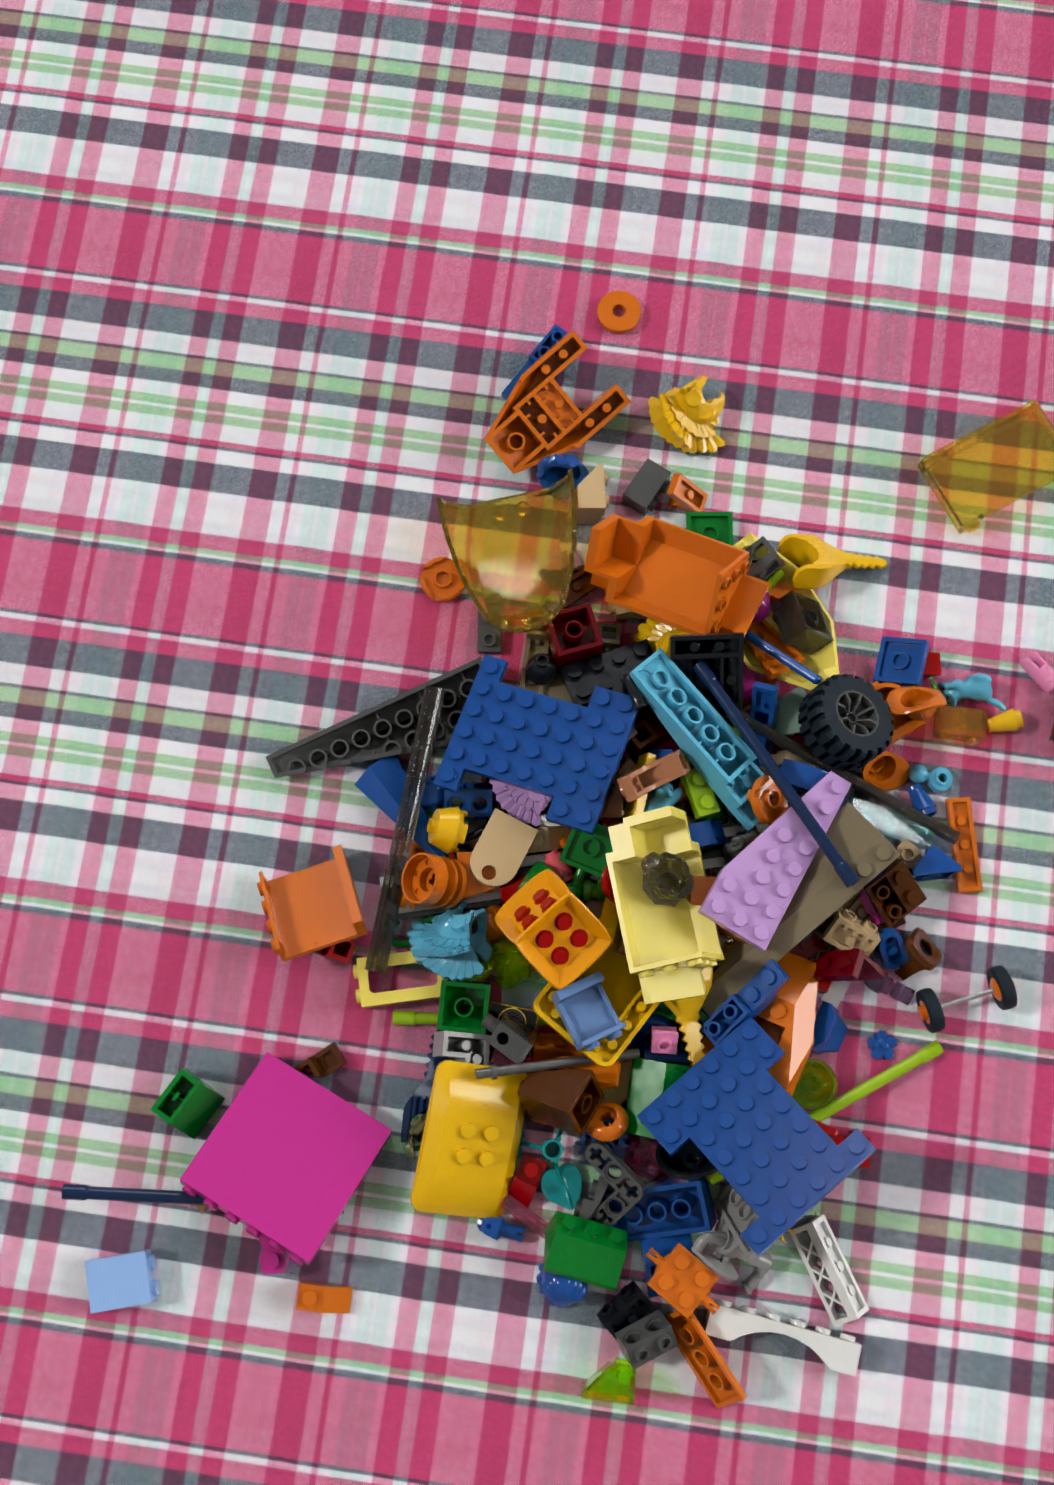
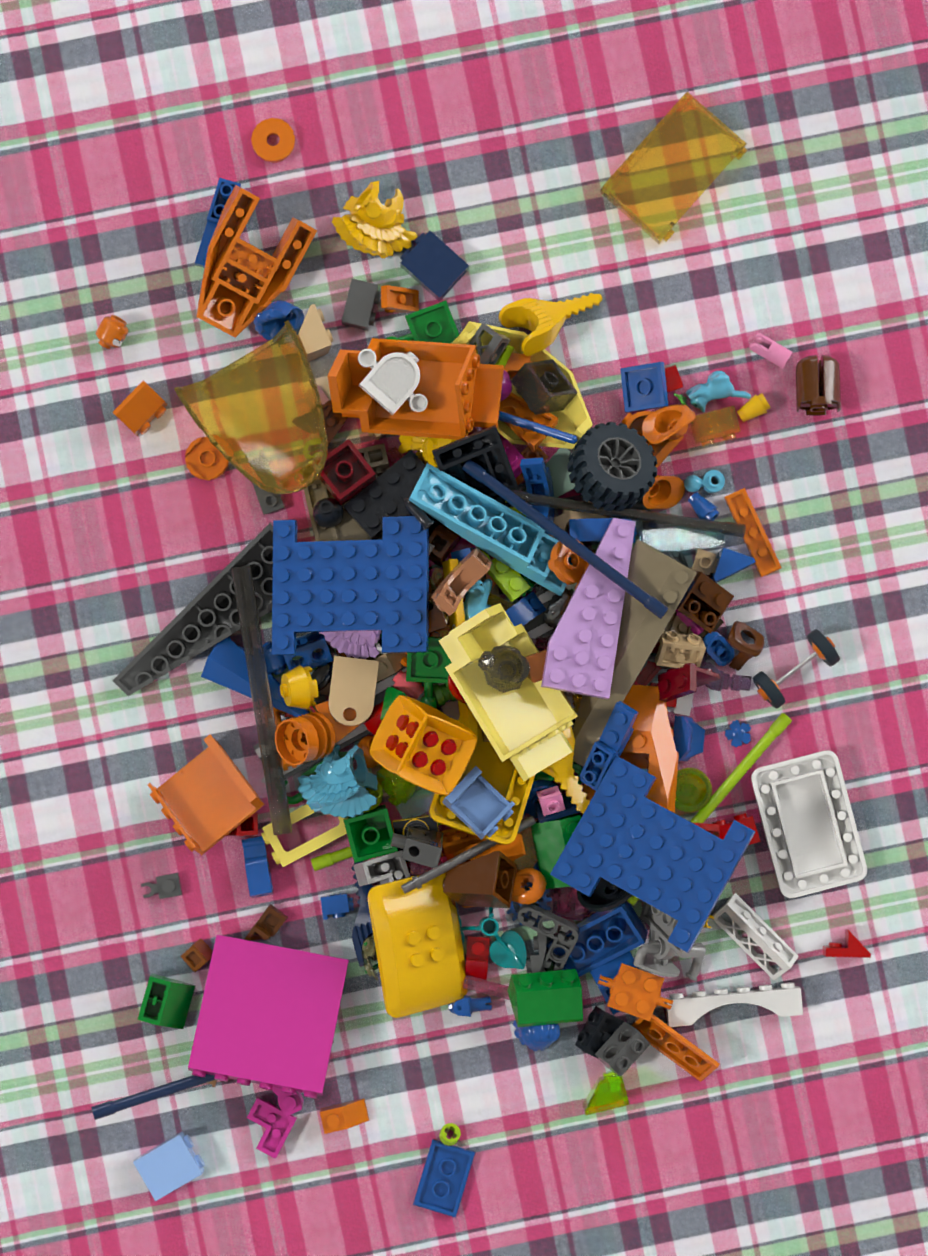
camera: 30 degrees left, 10 degrees up
(236, 984) = (166, 886): none -> dark grey plate
(239, 1067) = (197, 955): none -> dark orange slope
(250, 1280) = (276, 1124): none -> dark pink plate
(335, 999) = (257, 867): none -> blue piece
(396, 507) = (140, 408): none -> orange slope
(398, 429) = (112, 332): none -> orange head
(401, 1068) = (336, 905): none -> blue brick
(404, 1409) = (444, 1178): none -> blue tile
(435, 1364) = (450, 1126): none -> lime bush
(654, 558) = (392, 380): none -> white piece
(732, 476) = (433, 265): none -> dark blue brick
(927, 1169) = (809, 824): none -> white wedge
(931, 1321) = (852, 948): none -> red slope

